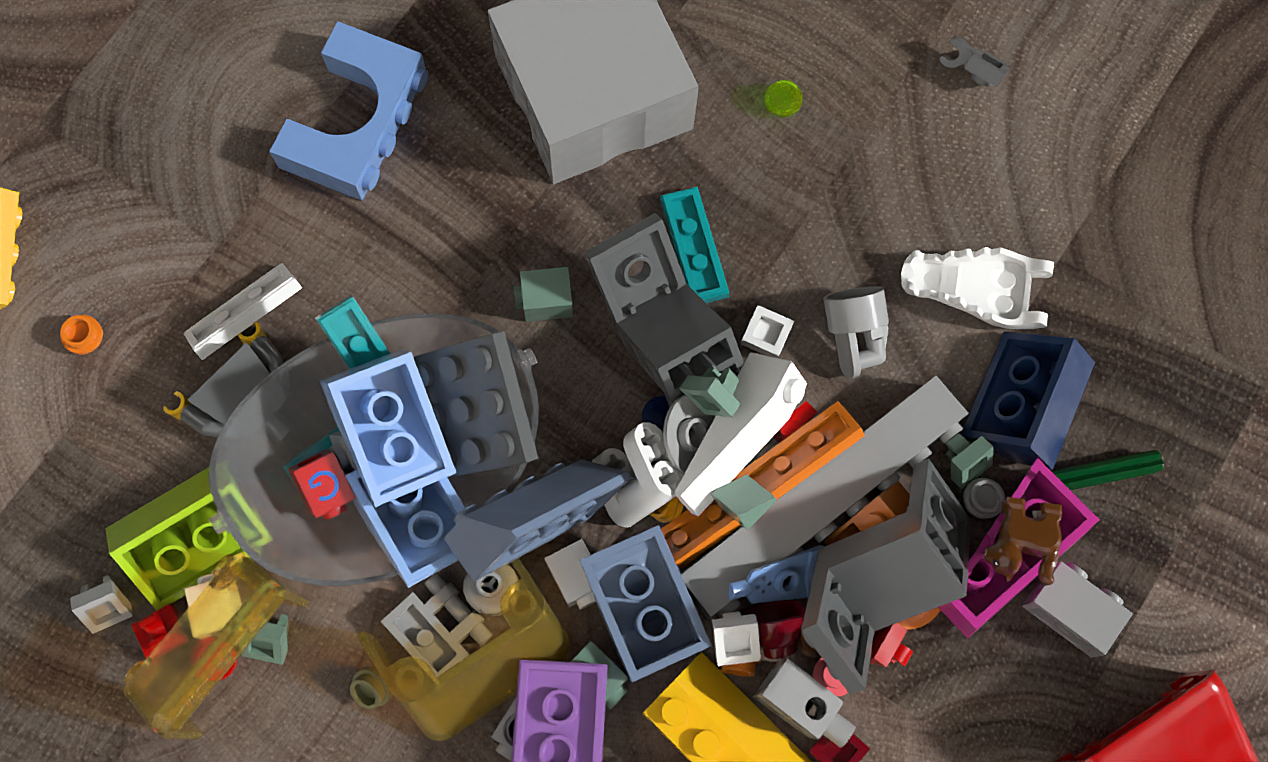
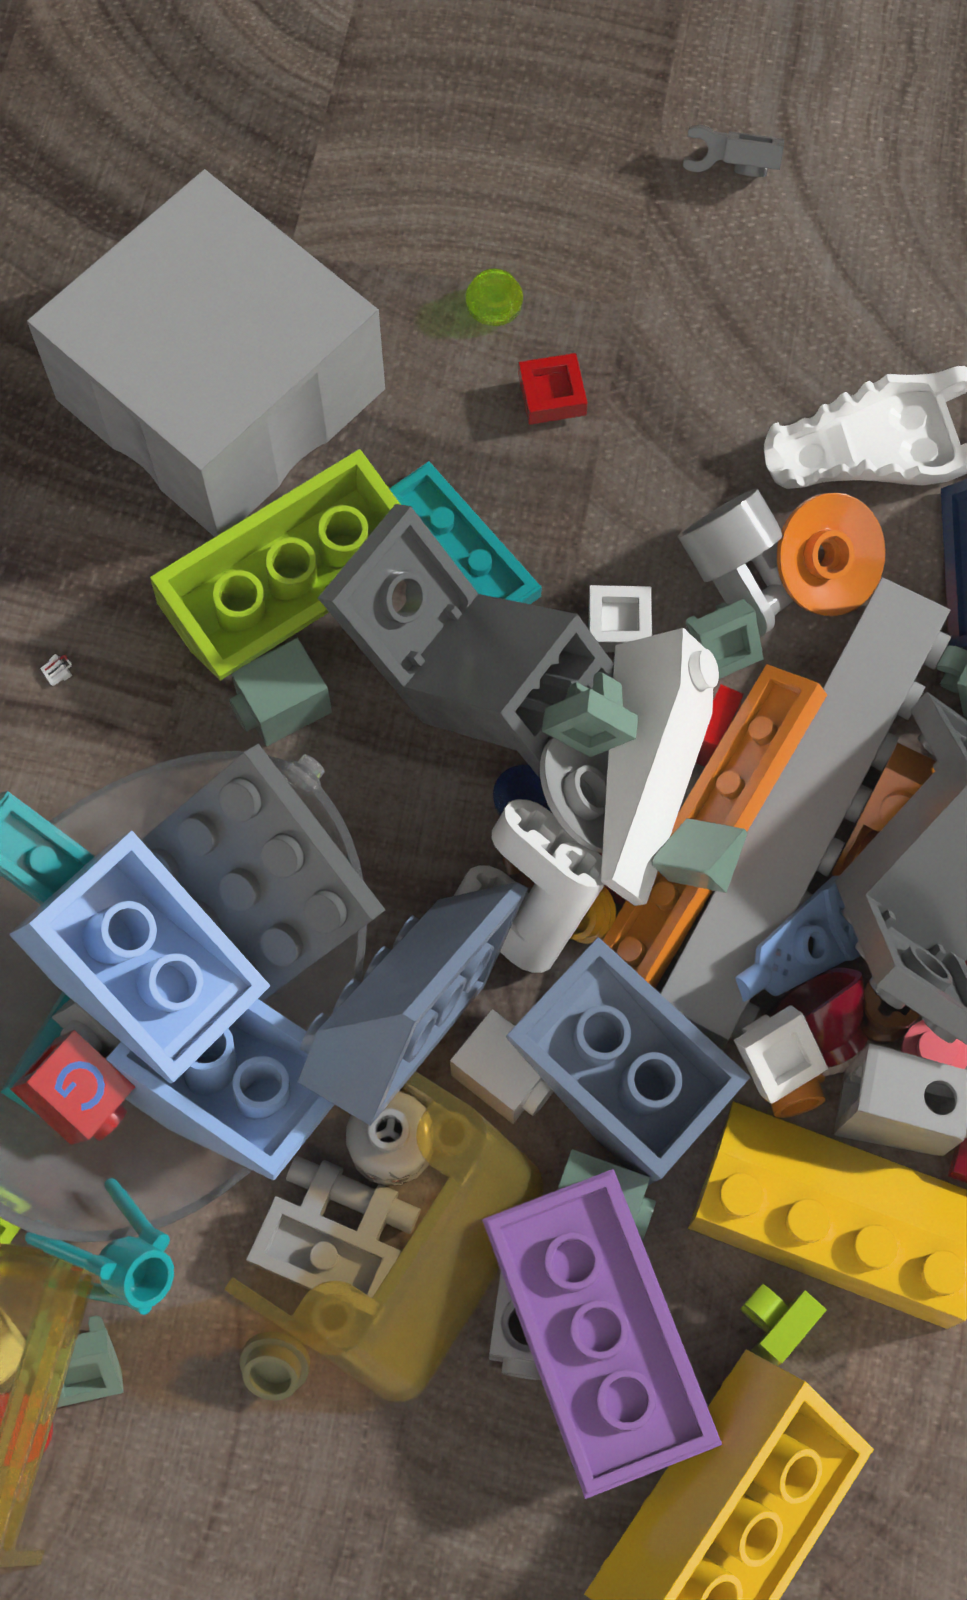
camera: 20 degrees left, 5 degrees down
(302, 603) = (130, 1268): none -> teal plant
(424, 224) = (56, 669): none -> white piece
(565, 219) = (269, 569): none -> lime slope
(792, 171) = (552, 388): none -> red plate
(825, 372) = (729, 635): none -> sand green tile
(924, 356) = (851, 558): none -> orange dish

